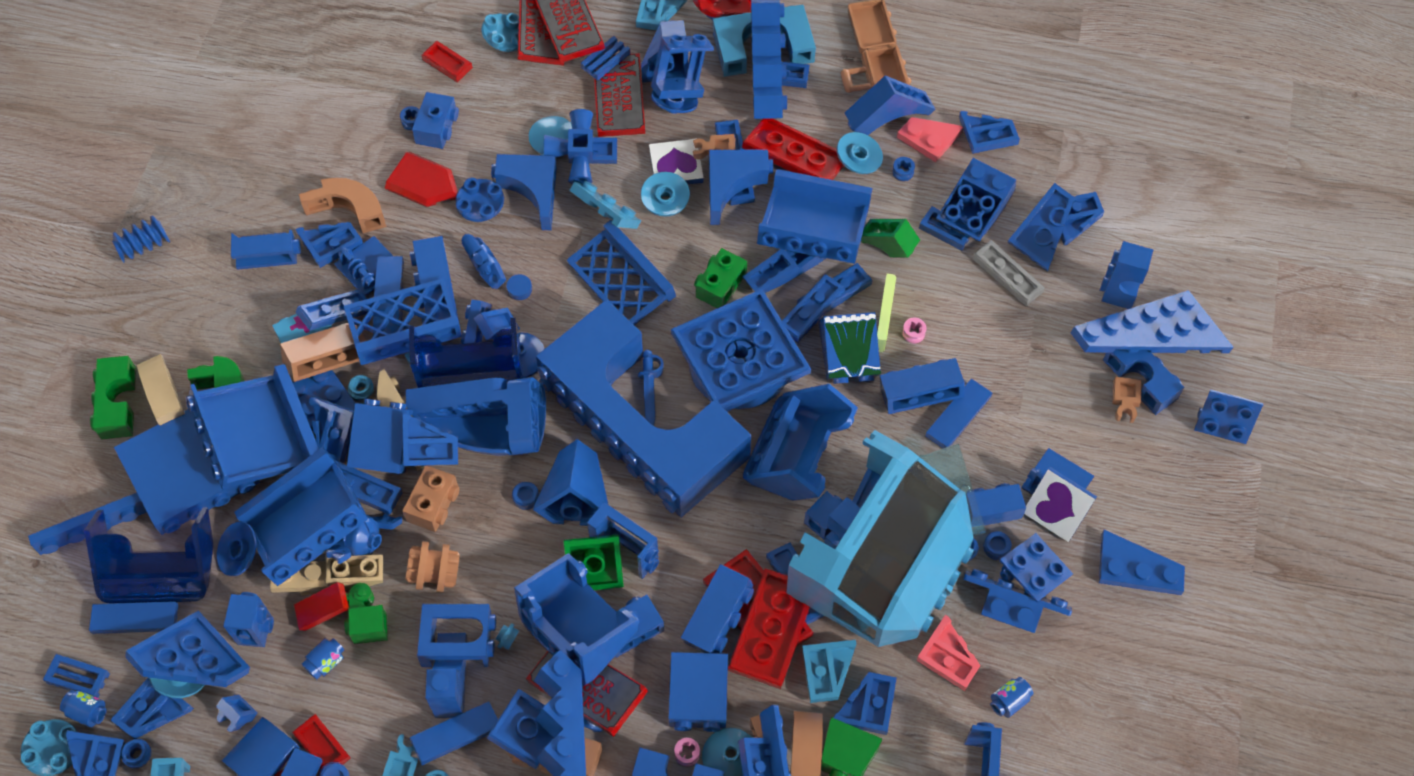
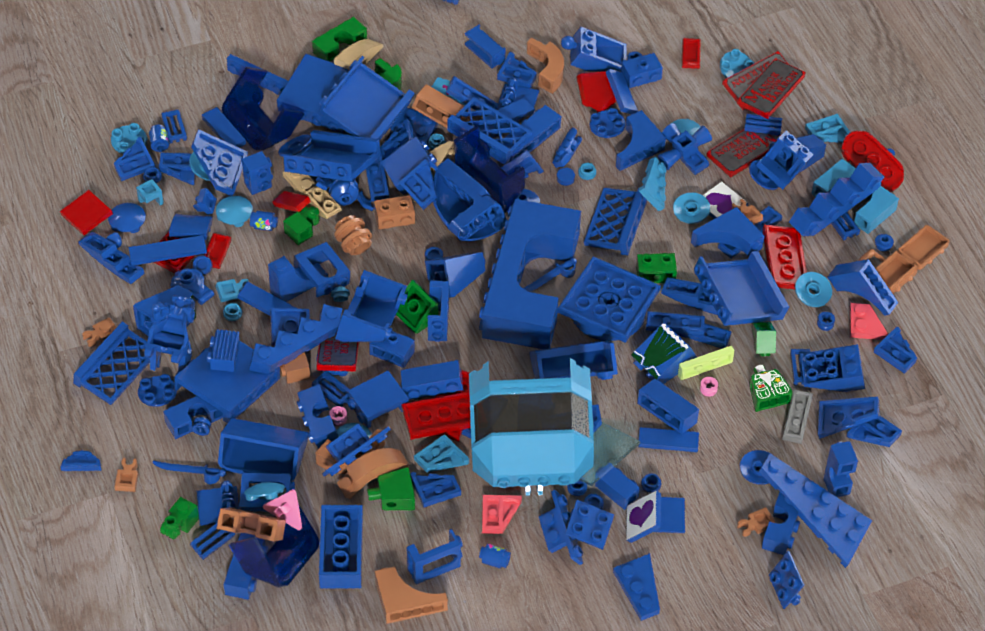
camera: 55 degrees right, 10 degrees down
(275, 684) = (234, 210): none -> dark azure dish
(369, 146) = (594, 51): none -> blue slope
(447, 158) = (621, 91): none -> blue tile
(493, 321) = (533, 178): blue tile -> none
(530, 256) = (587, 171): none -> dark azure plate
(641, 722) = (333, 395): none -> blue tile
(839, 54) = (884, 242): none -> blue plate
(958, 276) = (768, 389): none -> green torso
(1013, 464) = (651, 478): none -> blue plate
(1061, 341) = (751, 463): none -> blue dish

